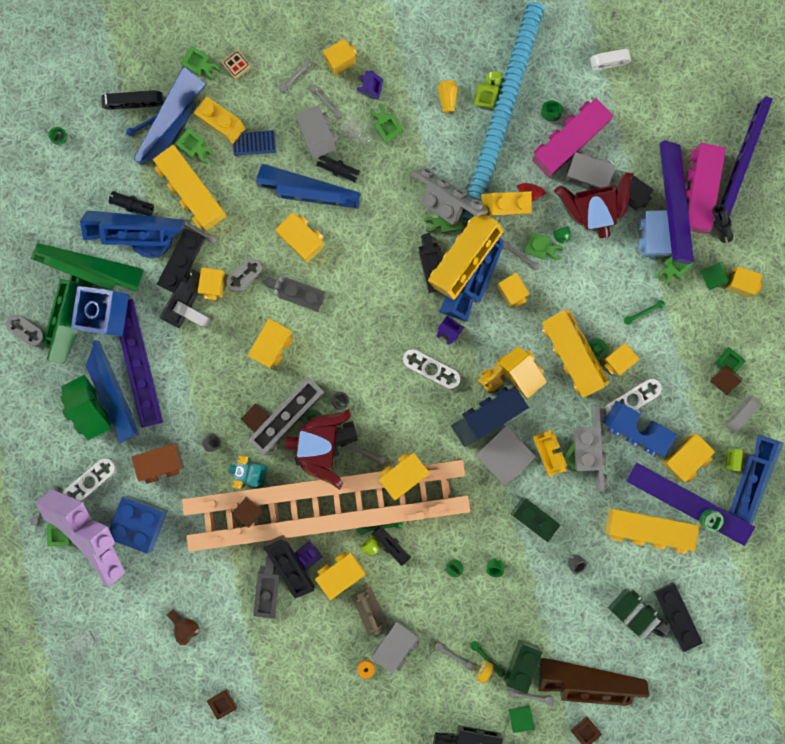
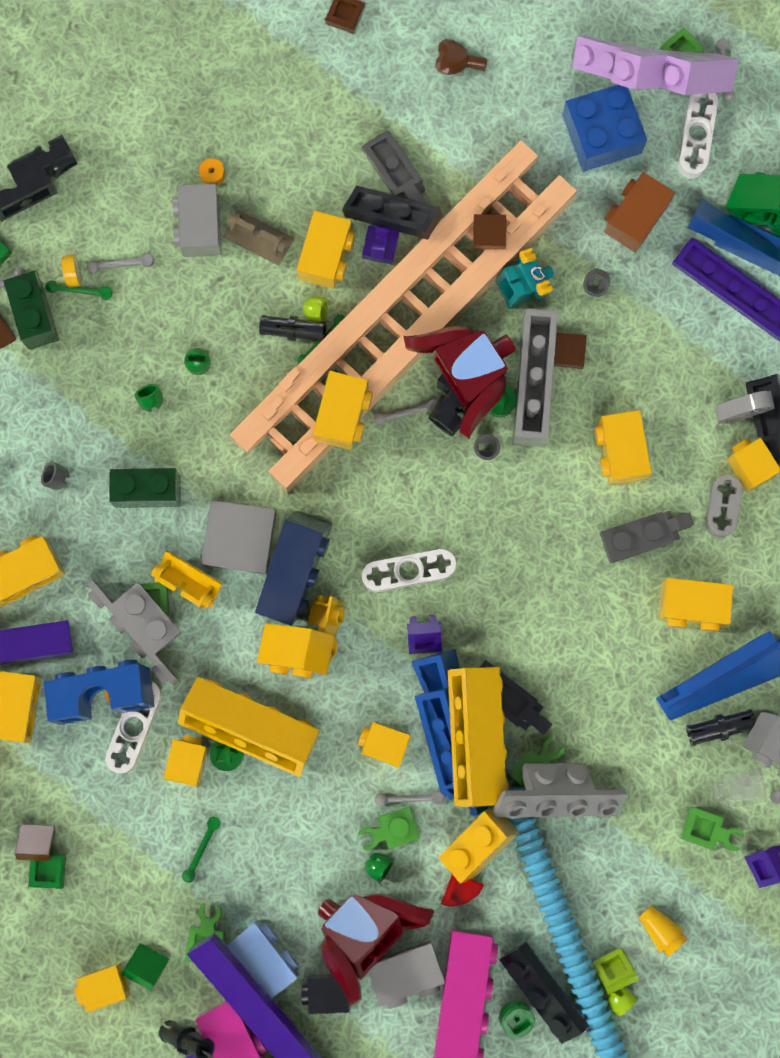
camera: 145 degrees right, 5 degrees down
(529, 112) = (544, 993): none -> black plate

